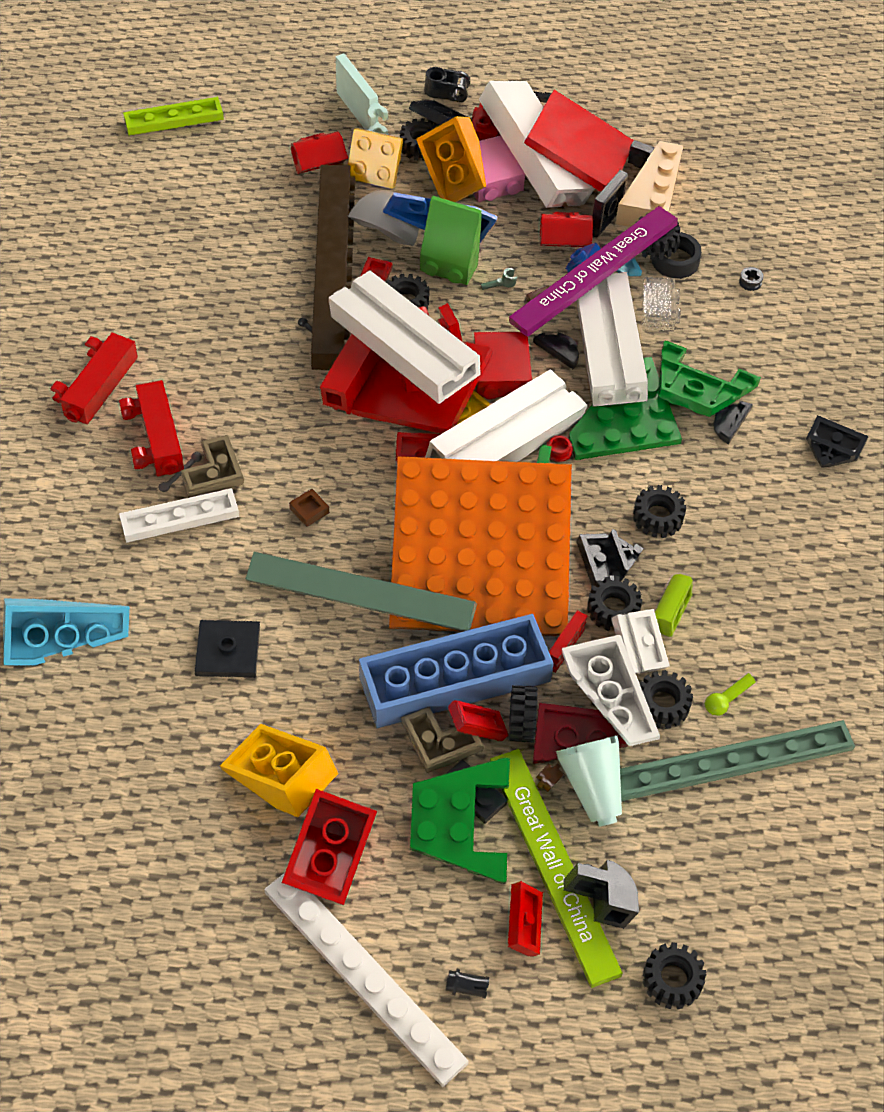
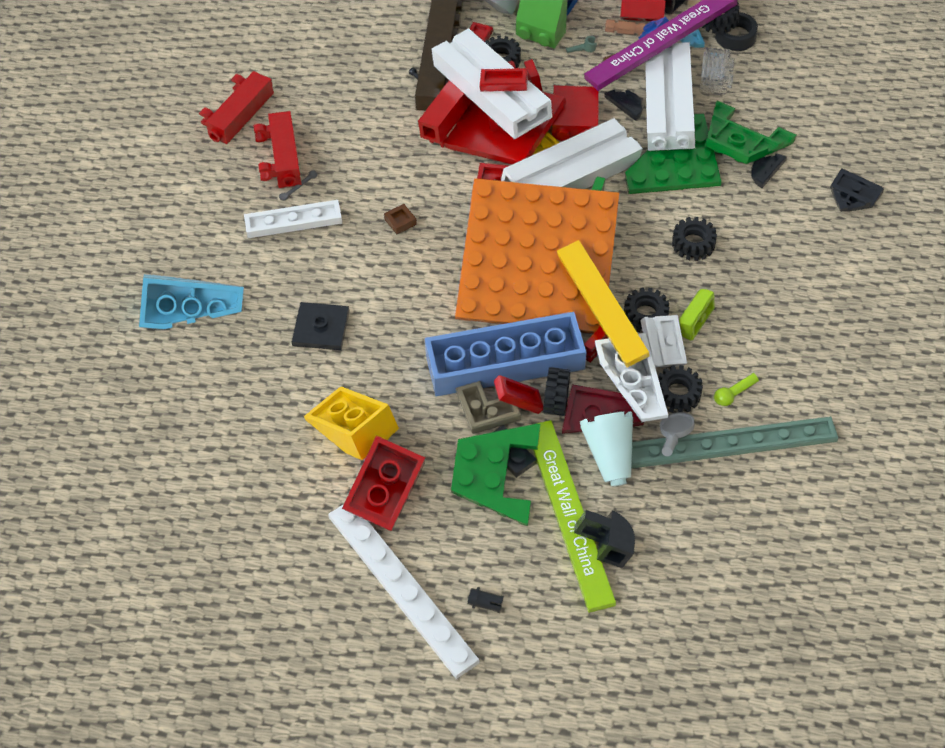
camera: 10 degrees right, 0 degrees up
(218, 474) = (330, 185): dark tan brick -> none
(362, 591) = (435, 287): sand green tile -> none
(420, 333) = (504, 79): none -> red tile
(525, 919) = (539, 553): red plate -> none
(547, 255) = (624, 27): none -> nougat axle
(549, 777) = (573, 444): reddish brown plate -> none
(561, 448) = (615, 183): red plate -> none
(567, 603) = (603, 304): none -> yellow tile
(607, 555) = (645, 271): black slope -> none
(667, 749) = (675, 427): none -> light grey piece
(687, 962) = (662, 593): black tyre -> none
(748, 284) = (799, 59): black bush -> none

